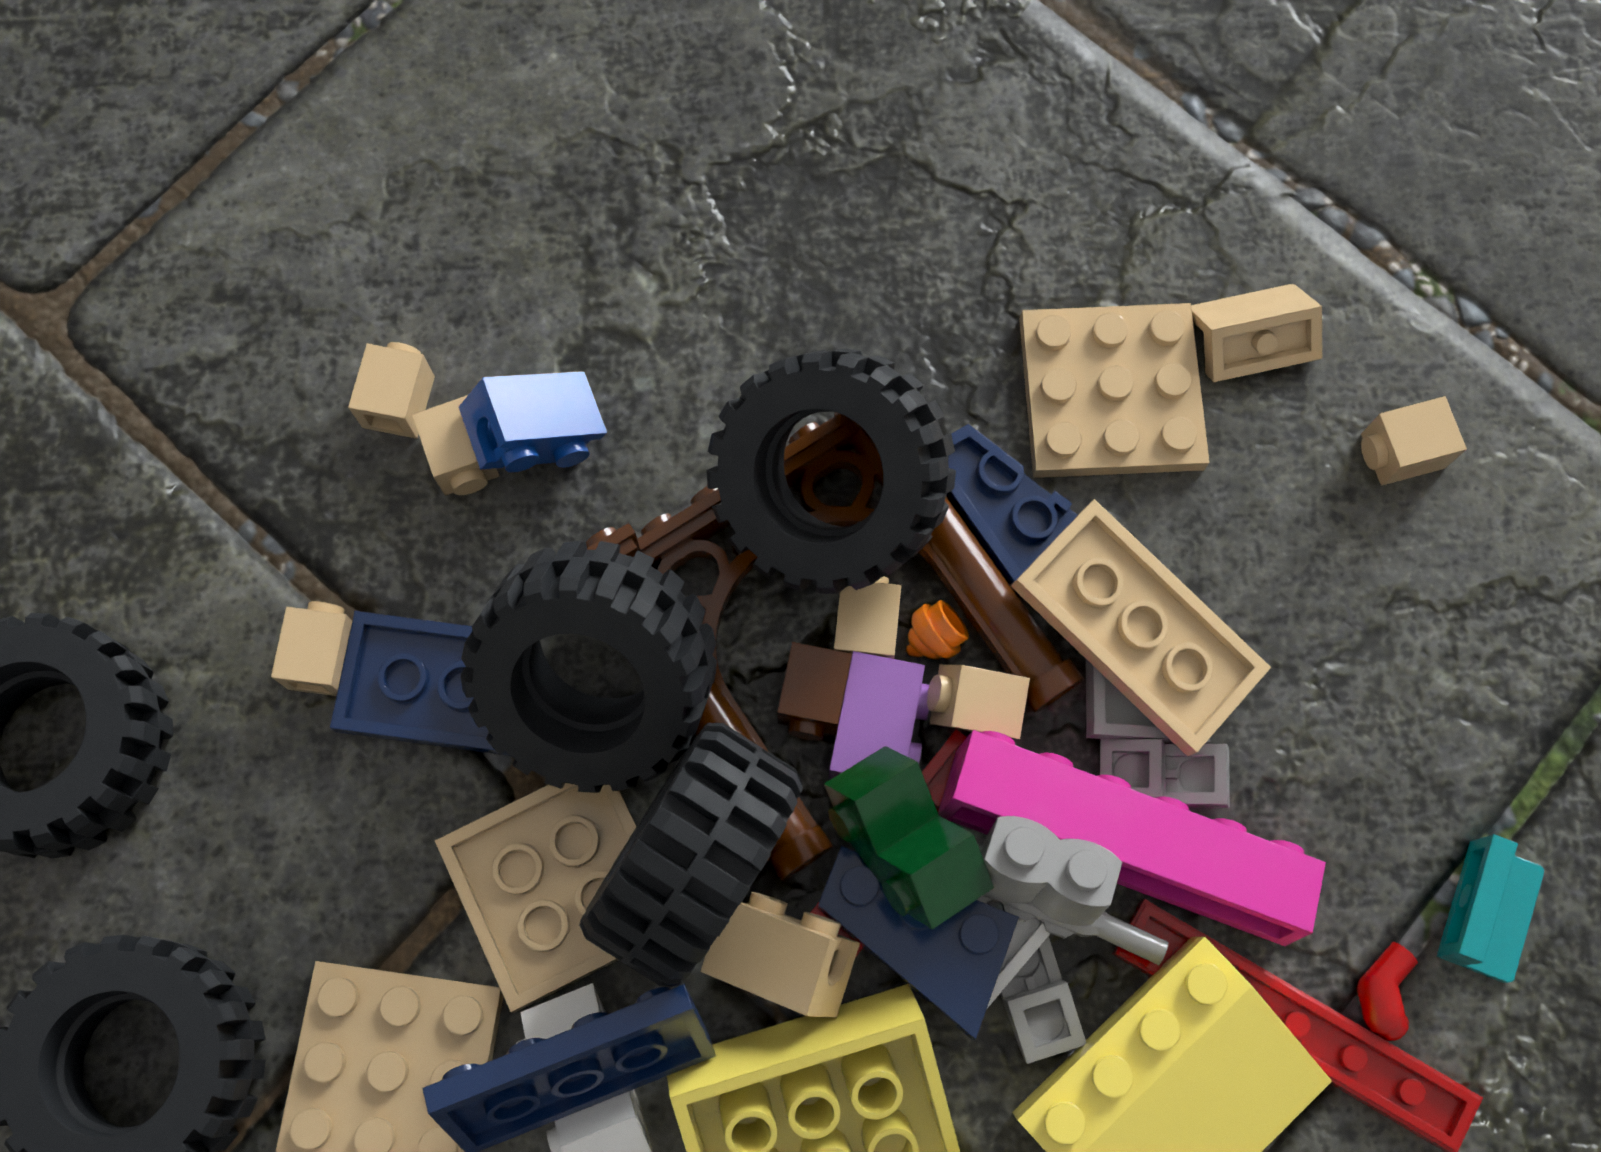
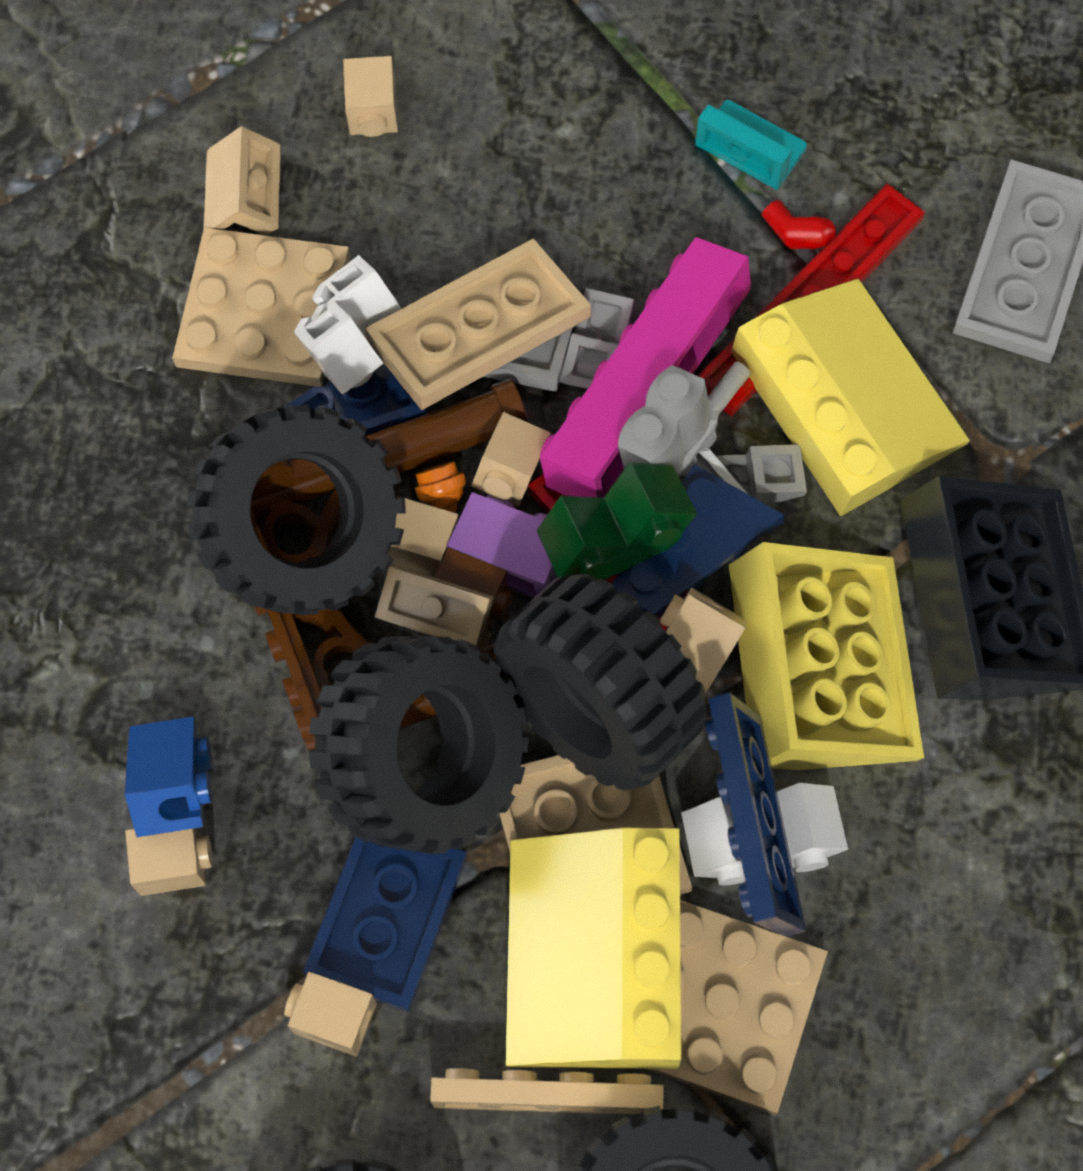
camera: 75 degrees left, 5 degrees down
(262, 919) = (523, 1092): none -> tan plate
(391, 388) = (93, 908): tan brick -> none
(409, 917) = (595, 950): none -> light yellow slope
(773, 655) = (434, 606): none -> tan panel
(1124, 477) = (336, 330): none -> white brick

